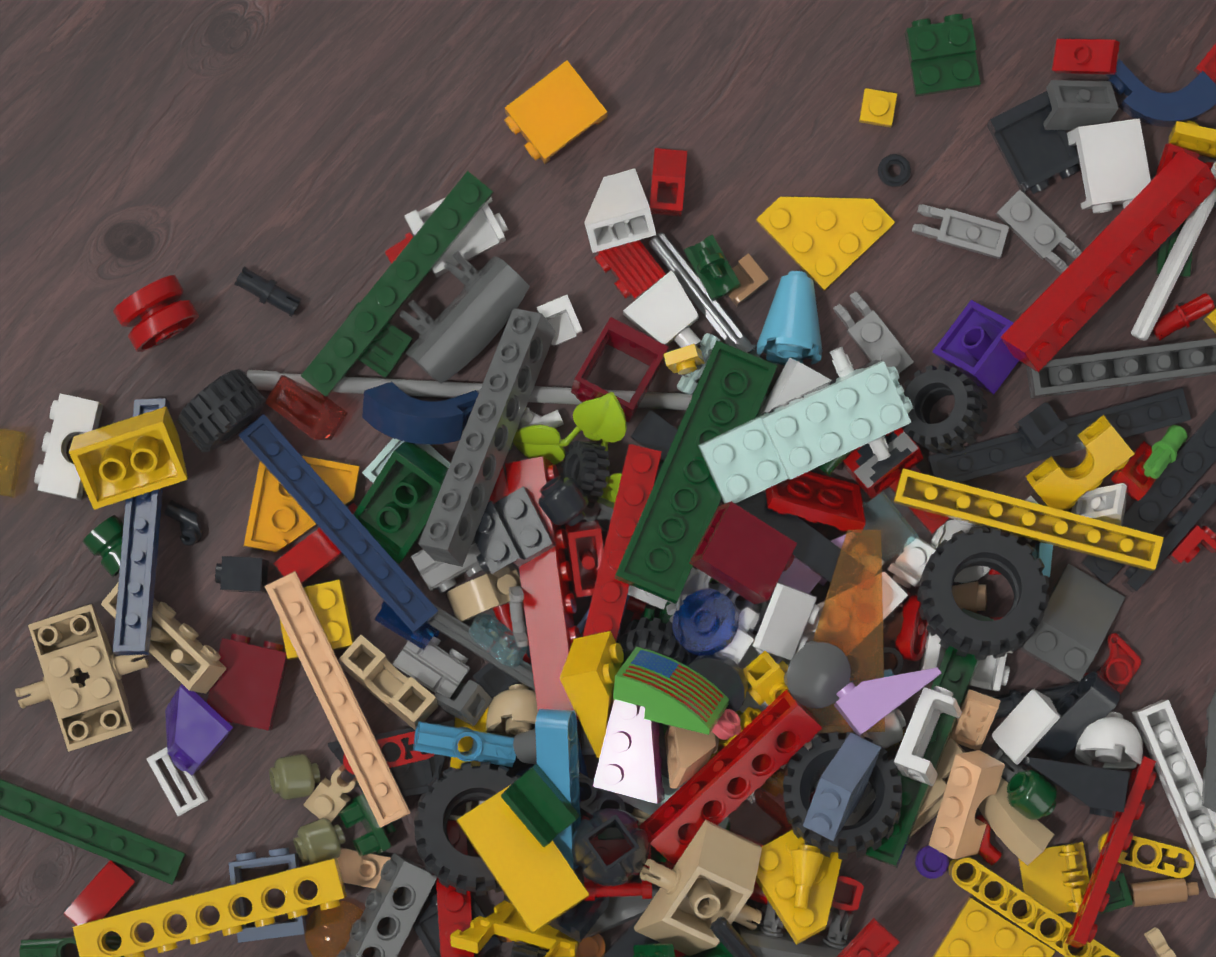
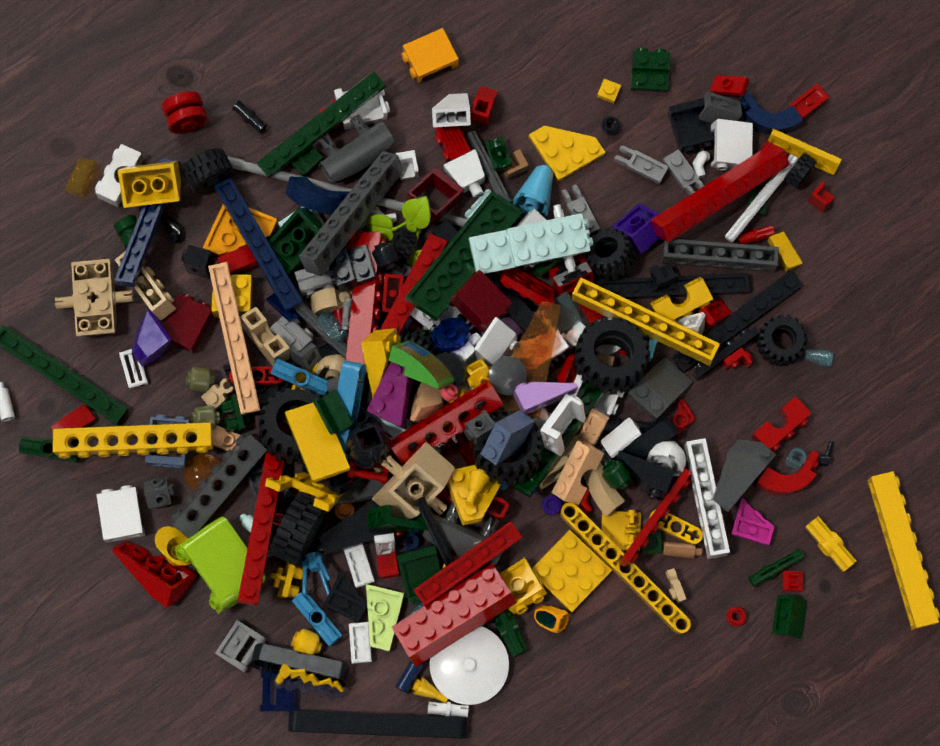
camera: 10 degrees right, 10 degrees down
(306, 408) = (255, 181): clear red slope -> none
(684, 359) = (471, 197): yellow plate -> none
(793, 792) = (479, 428): none -> dark grey brick
(1059, 205) = (700, 159): none -> white arm
(1164, 451) = (731, 304): bright green axle -> none

